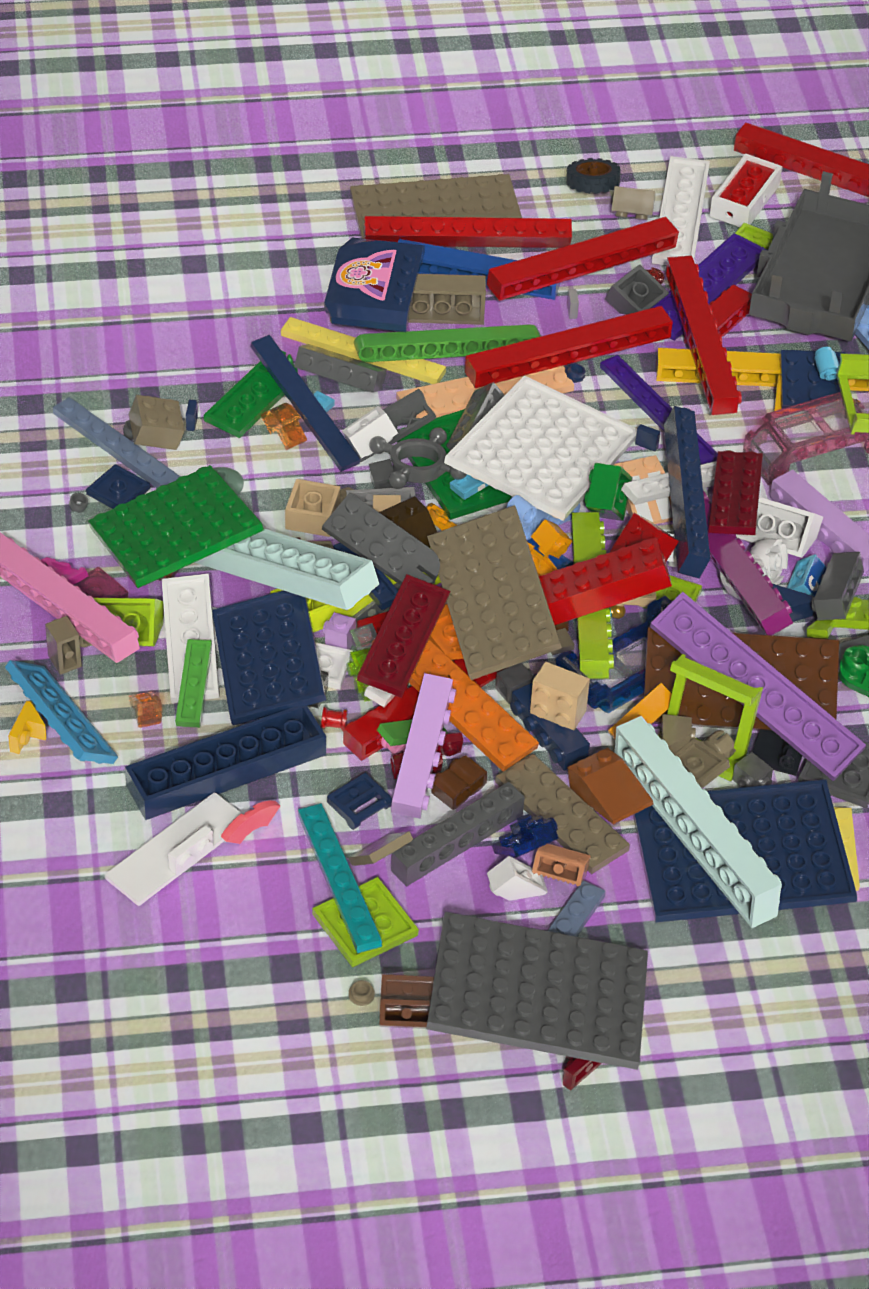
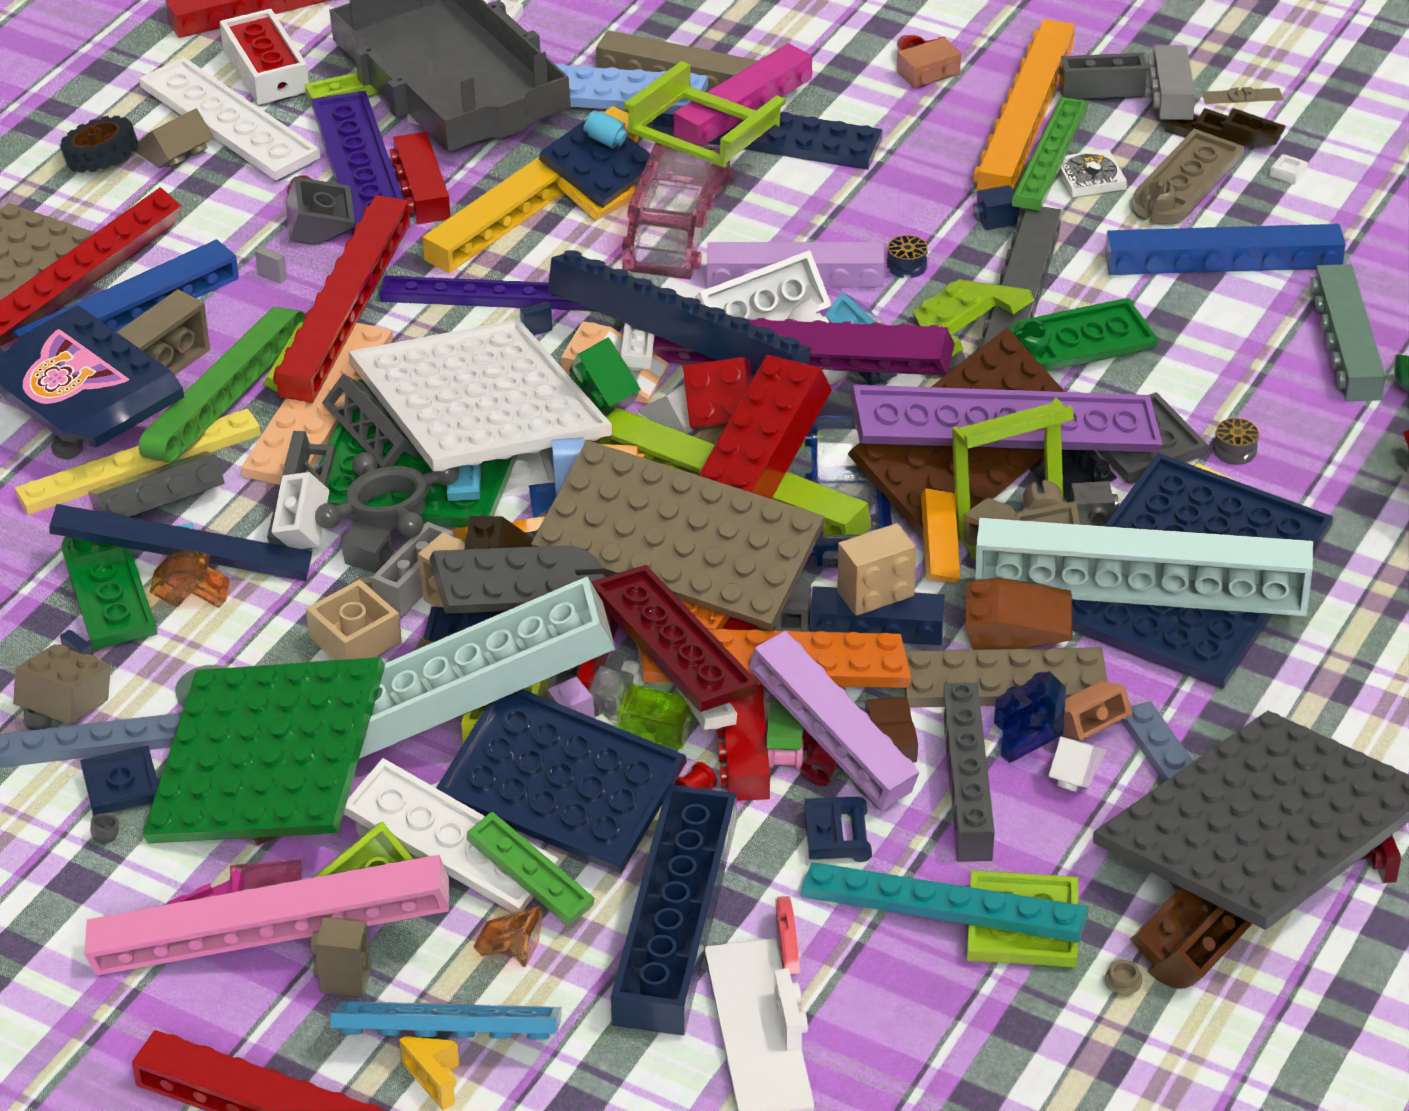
camera: 50 degrees left, 5 degrees down
(381, 848) = (938, 841): dark tan tile -> none
(575, 372) = (376, 317): dark blue plate -> none
(582, 258) = (229, 212): red brick -> none
(702, 335) = (451, 192): red brick -> none
(736, 493) = (718, 286): dark red plate -> none
(838, 586) = (903, 296): dark grey brick -> none

